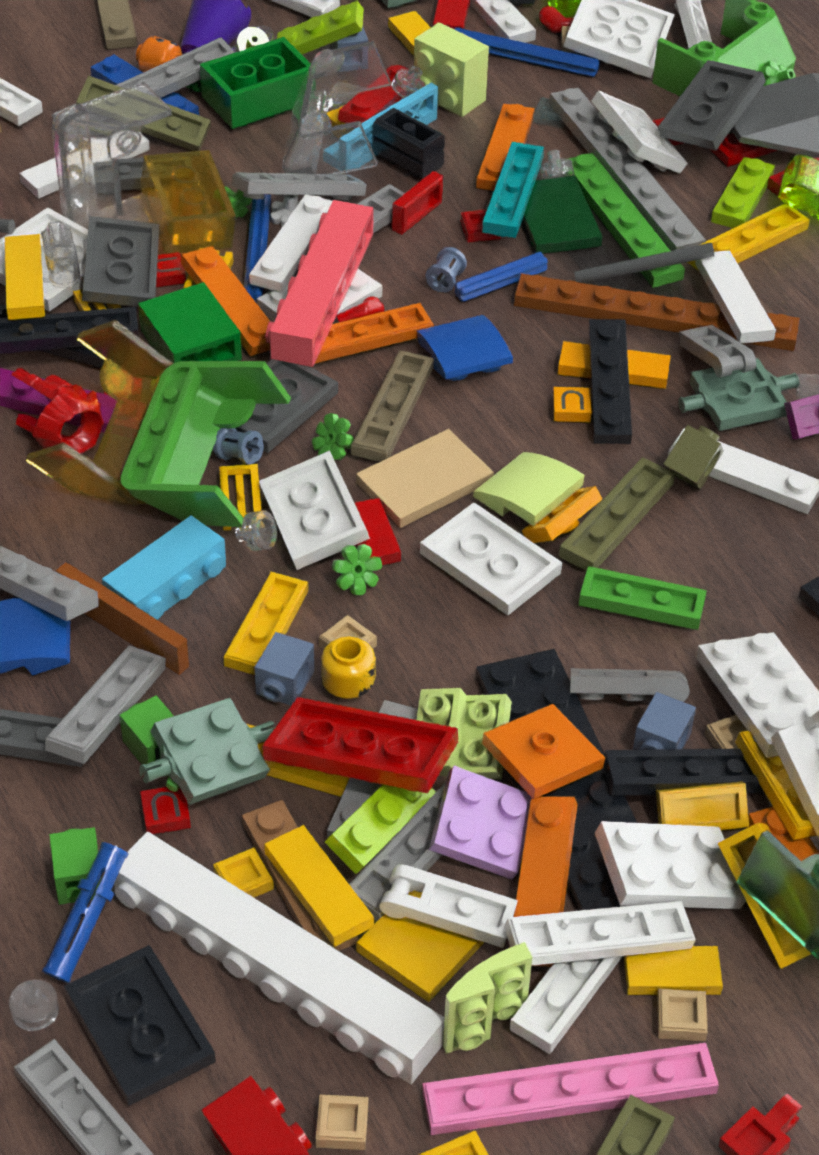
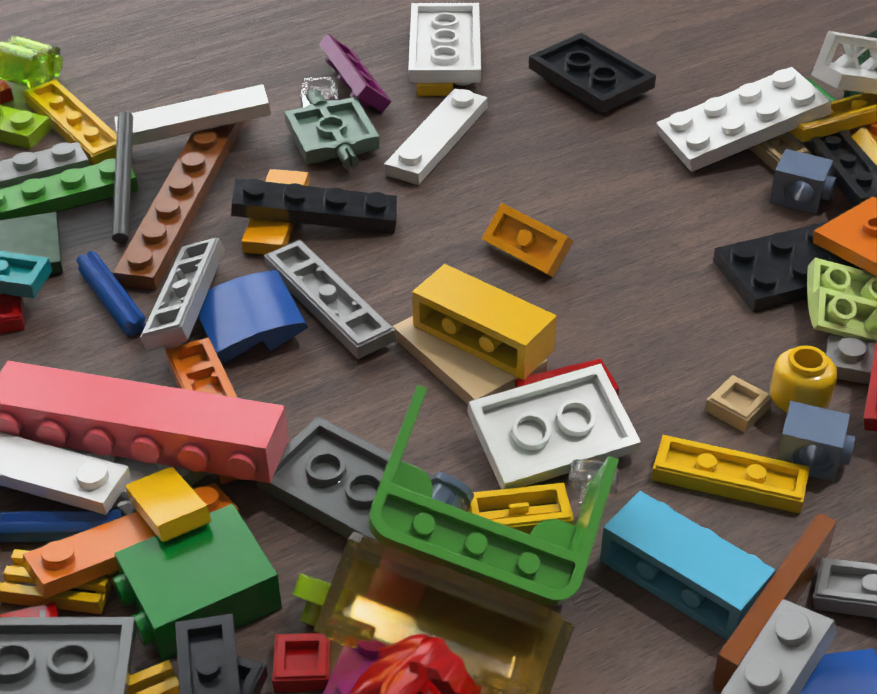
camera: 90 degrees left, 5 degrees down
(242, 301) = (168, 504): none -> yellow tile
(333, 436) = (426, 422): bright green plant -> none
(357, 569) = (638, 392): bright green plant -> none
(392, 406) = (349, 373): dark tan plate -> none
(431, 468) = (484, 321): none -> yellow brick
(448, 280) = (96, 332): sand blue bush -> none
(487, 393) = (330, 299): none -> light grey plate
(490, 558) = (599, 291): white plate -> none
(529, 315) = (182, 295): none -> light grey plate
(530, 487) = (494, 253): yellowish green slope -> none
(572, 404) = (341, 241): light orange tile -> none
(617, 514) = (485, 194): olive plate -> none
(631, 684) = (751, 200): light grey plate -> none
(642, 597) = (630, 195): bright green plate -> none
(695, 455) = (443, 145): olive brick -> none
(718, 350) = (279, 128): light grey plate -> none

